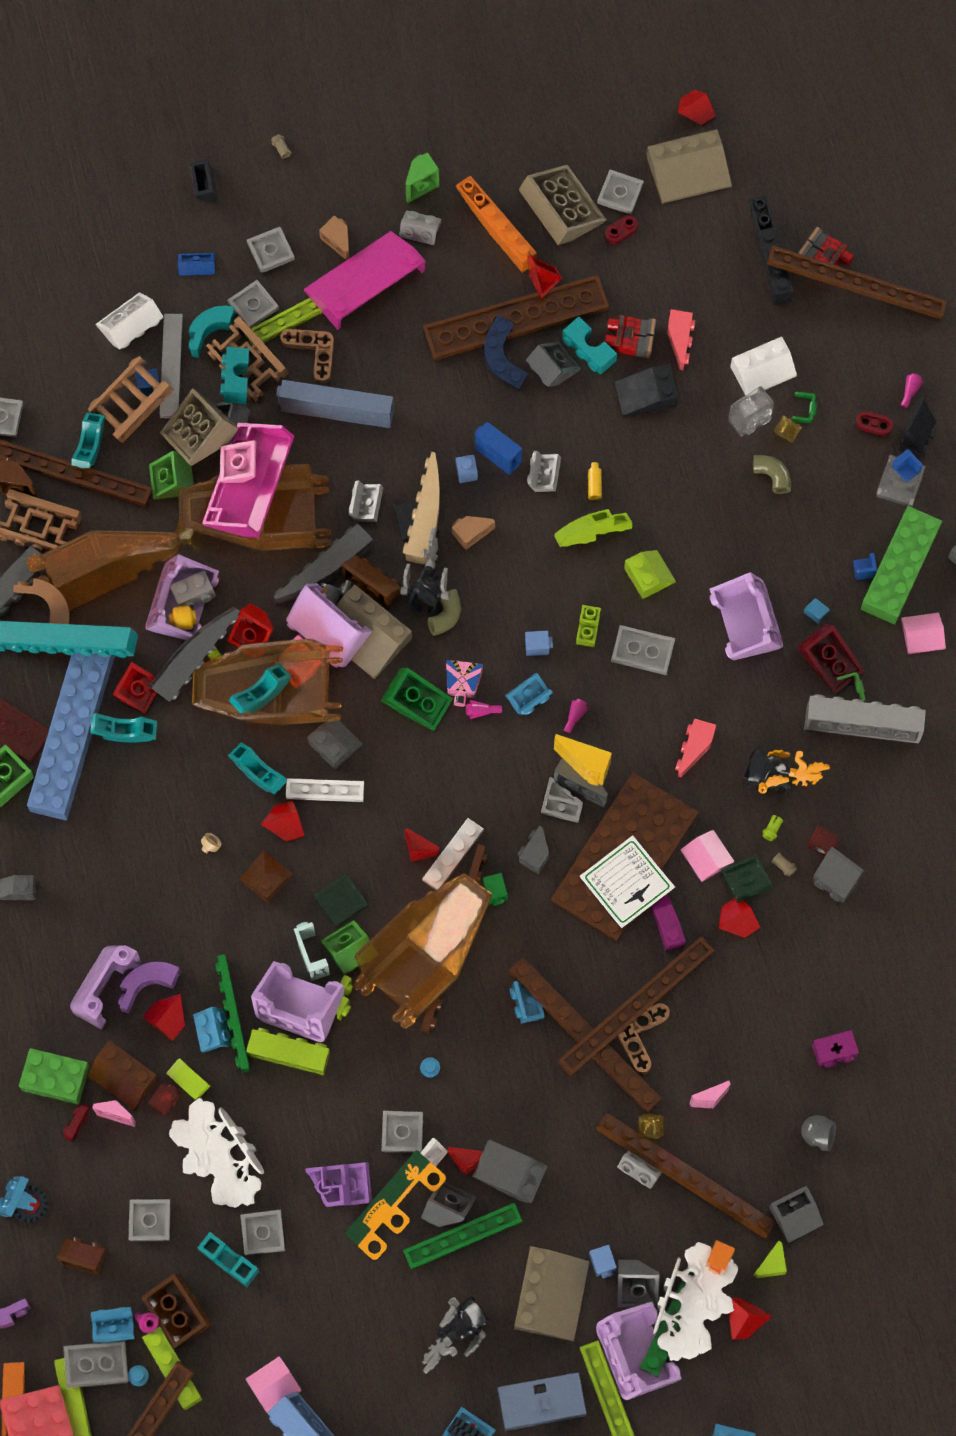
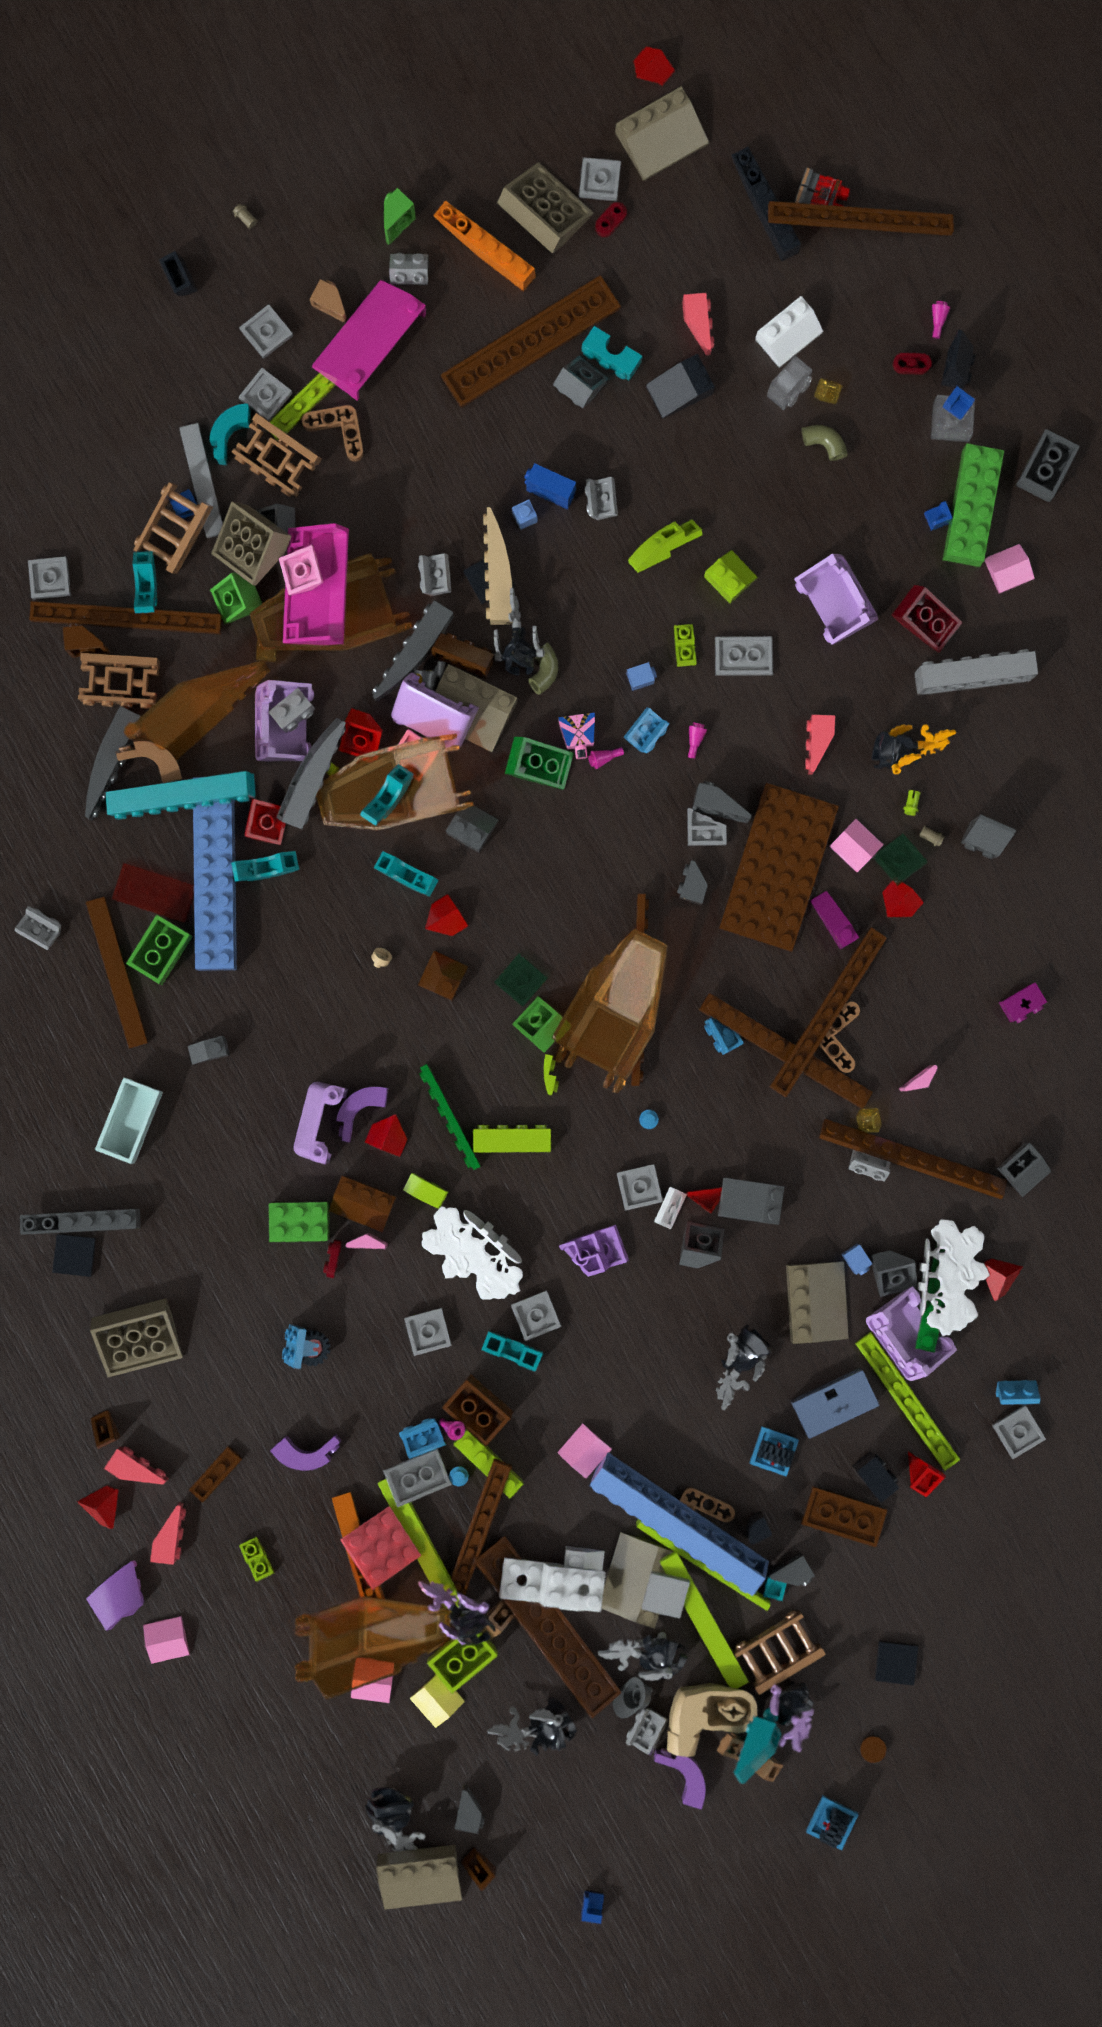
camera: 20 degrees left, 15 degrees up
(82, 1256) = (375, 1383): reddish brown slope -> none
(130, 320) = (147, 443): white slope -> none
(164, 1099) = (408, 1215): clear red brick -> none
(182, 617) = (290, 741): yellow head -> none
(196, 264) = (195, 365): blue slope -> none
(212, 1029) = (434, 1137): dark azure bracket -> none
(235, 363) = (273, 492): teal arch -> none
(296, 1003) = (508, 1092): lavender windscreen -> none
(317, 969) = (495, 1021): light aqua panel -> none
(325, 790) = (475, 876): white plate -> none
(335, 403) = (377, 480): sand blue brick -> none
(386, 1202) = (643, 1257): piece -> none
(419, 847) = (581, 909): red slope -> none
(453, 854) = (615, 907): white plate -> none
(462, 1236) = (721, 1270): green plate -> none
(471, 530) = (546, 576): medium nougat slope -> none
(495, 356) = (520, 387): dark blue plate -> none
(496, 886) = (665, 932): green brick -> none
(542, 275) = (546, 290): red slope -> none
(584, 759) = (725, 790): yellow slope -> none
(594, 482) = (653, 495): yellow cylinder -> none
(627, 881) = (788, 892): white sticker -> none
(632, 337) = (651, 332): hips -> none
(720, 1258) = (966, 1232): orange brick -> none
(773, 1264) = (1013, 1220): lime slope -> none
(812, 408) = (846, 361): green piece -> none
(816, 610) = (901, 572): dark azure slope -> none
(819, 1132) = (1026, 1086): dark grey helmet -> none
(823, 840) = (964, 804): clear red brick -> none
(858, 684) = (961, 640): bright green piece -> none

